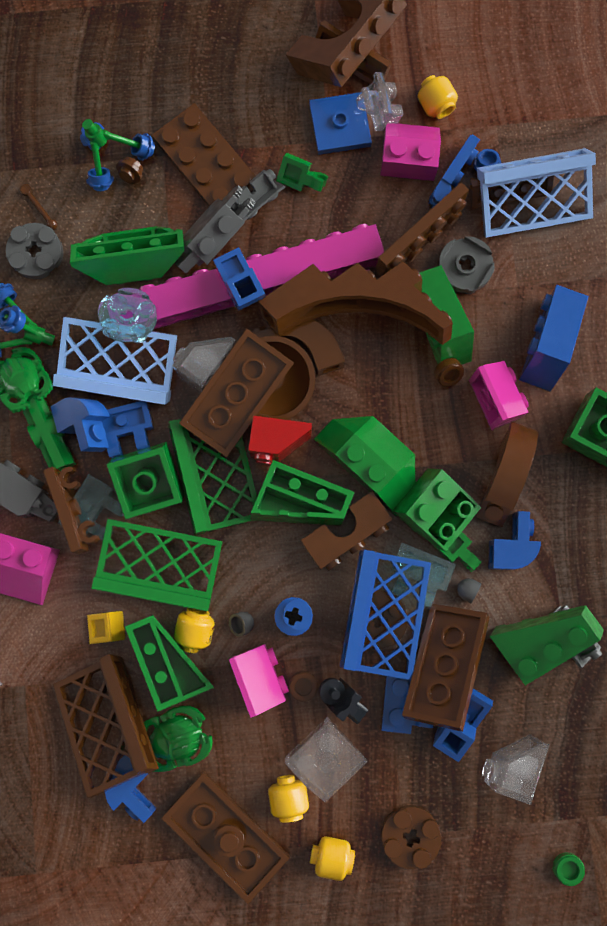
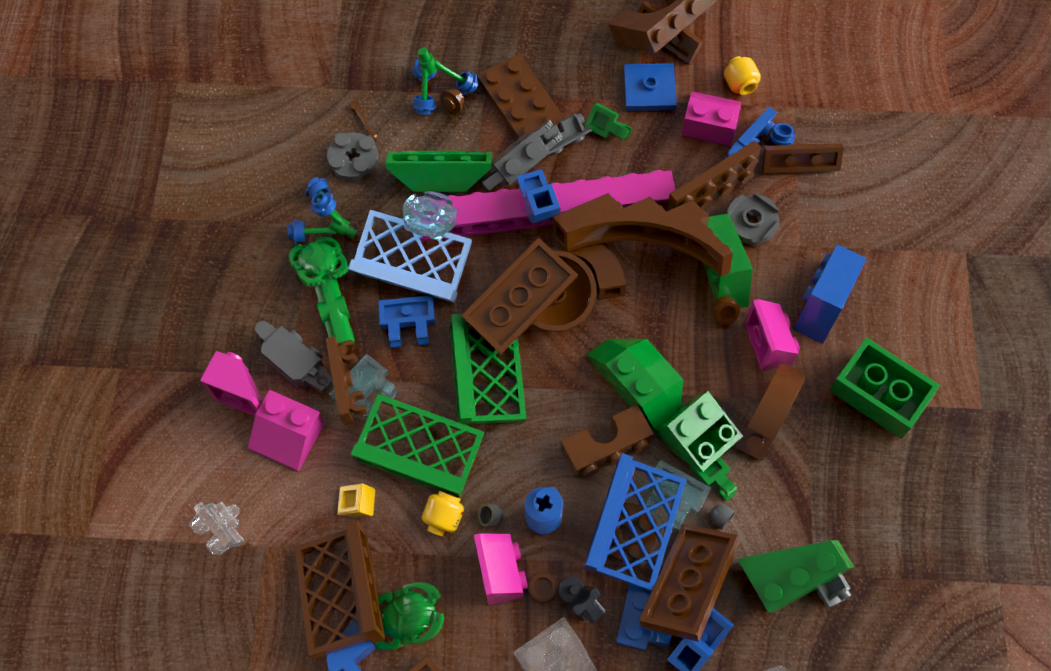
camera: 10 degrees right, 15 degrees down
(84, 419) = (369, 302): blue brick -> none
(145, 480) = (420, 364): green brick -> none
(164, 664) = (408, 542): green wedge -> none
(201, 360) = (489, 262): clear slope -> none
(276, 438) = (552, 344): red slope -> none
(300, 498) = (565, 402): green wedge -> none
(377, 101) = (688, 73): clear hips -> none
(518, 551) = (772, 486): blue brick -> none
(535, 168) = (830, 142): light blue fence -> none

